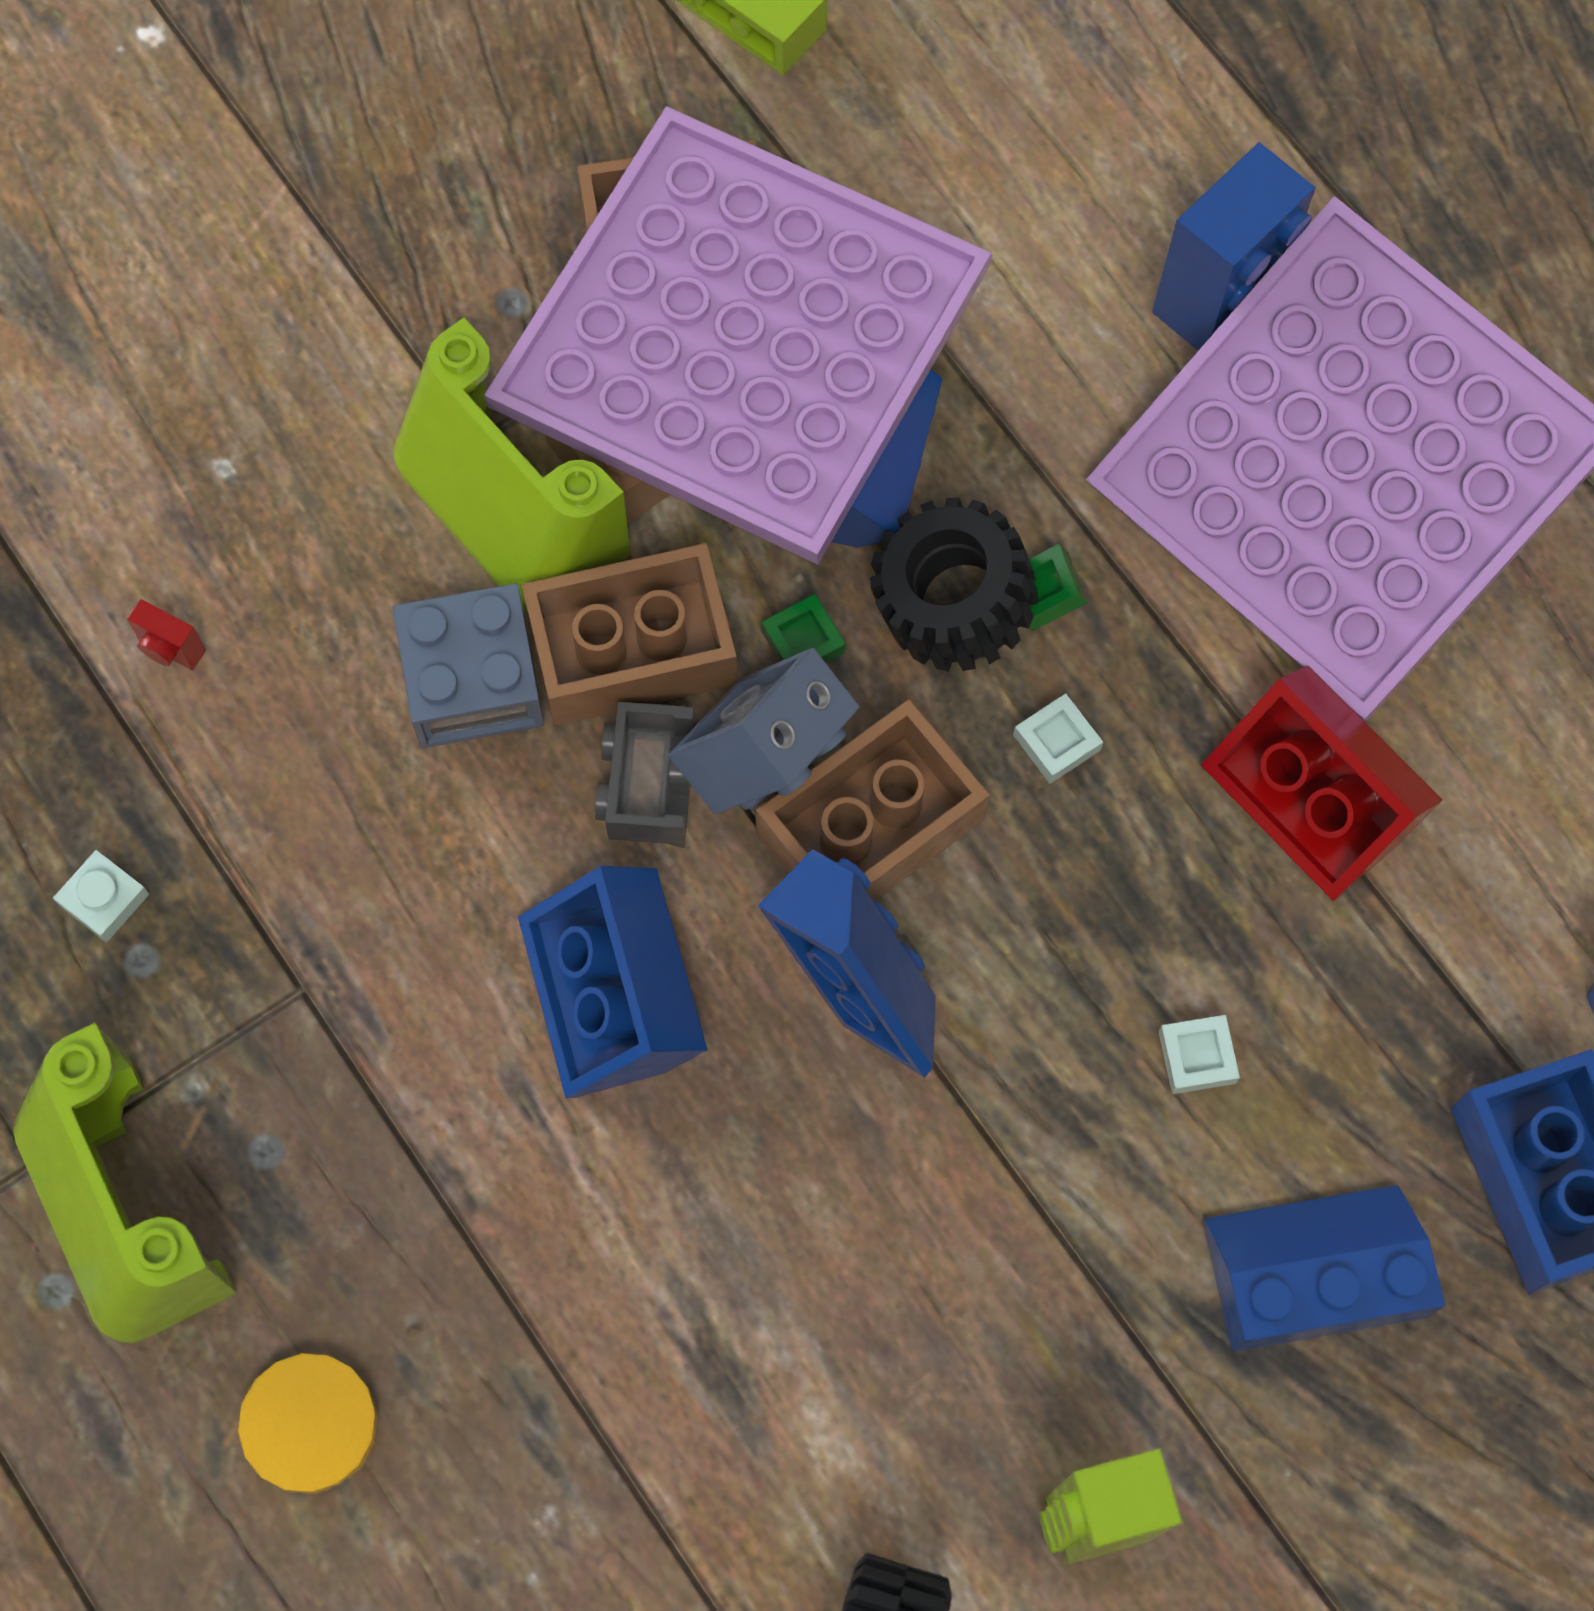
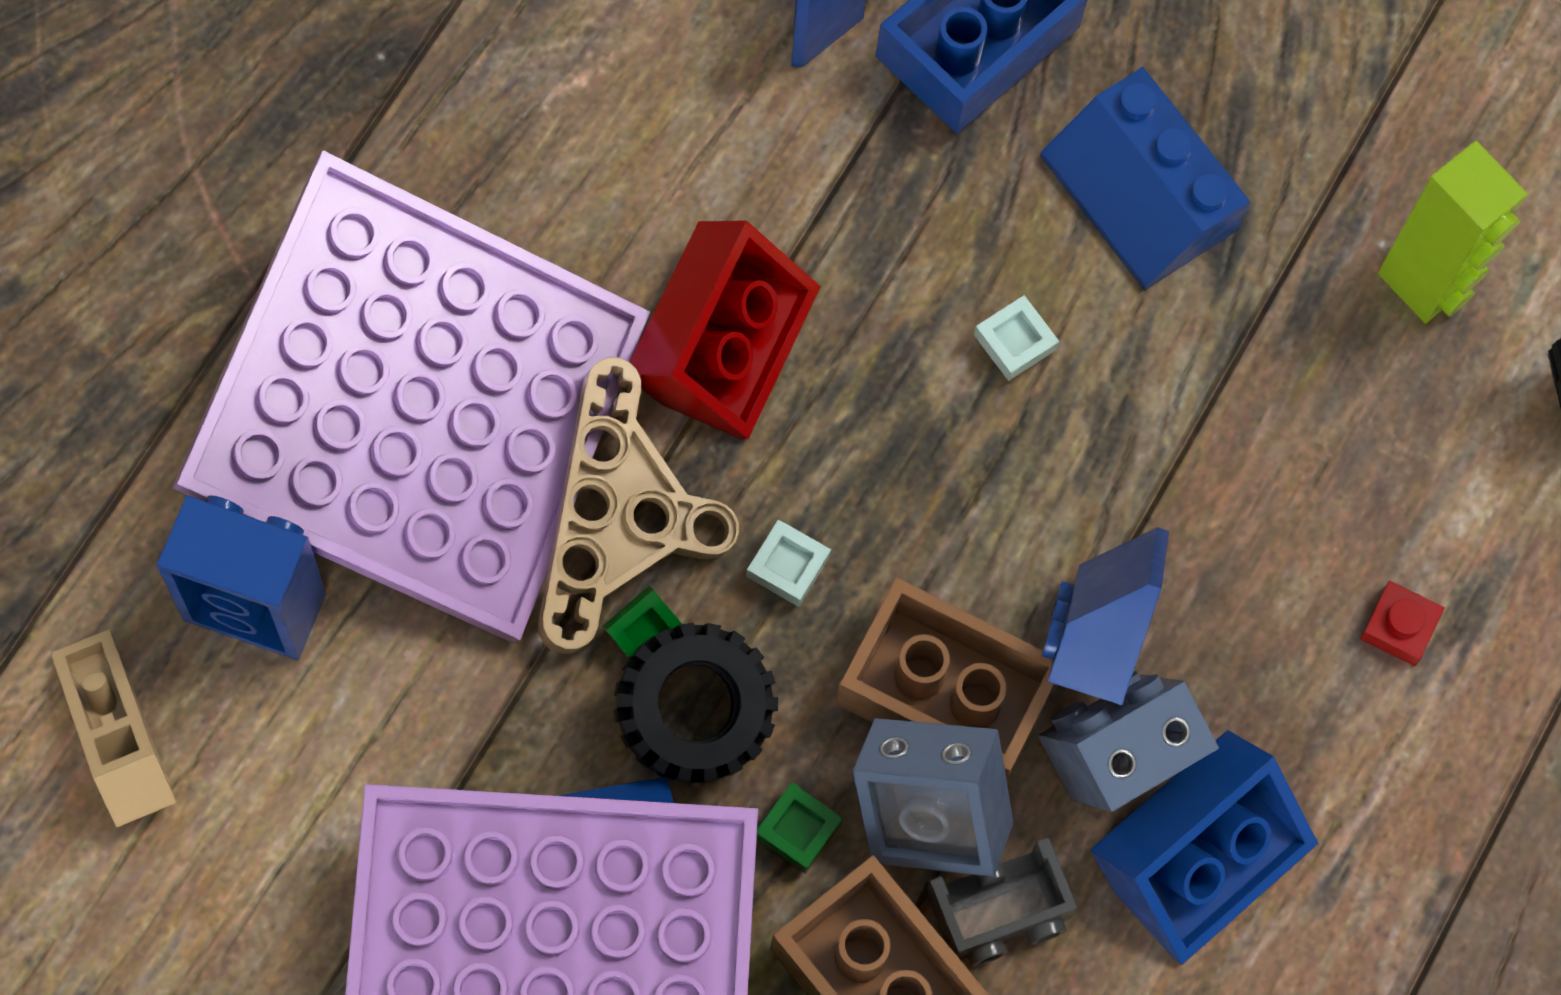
camera: 120 degrees left, 0 degrees up
(725, 943) = (1121, 751): none -> sand blue piece
(738, 1292) = (1402, 623): none -> red plate
(1145, 134) = (112, 729): none -> tan slope
(1198, 621) = (615, 540): none -> tan beam

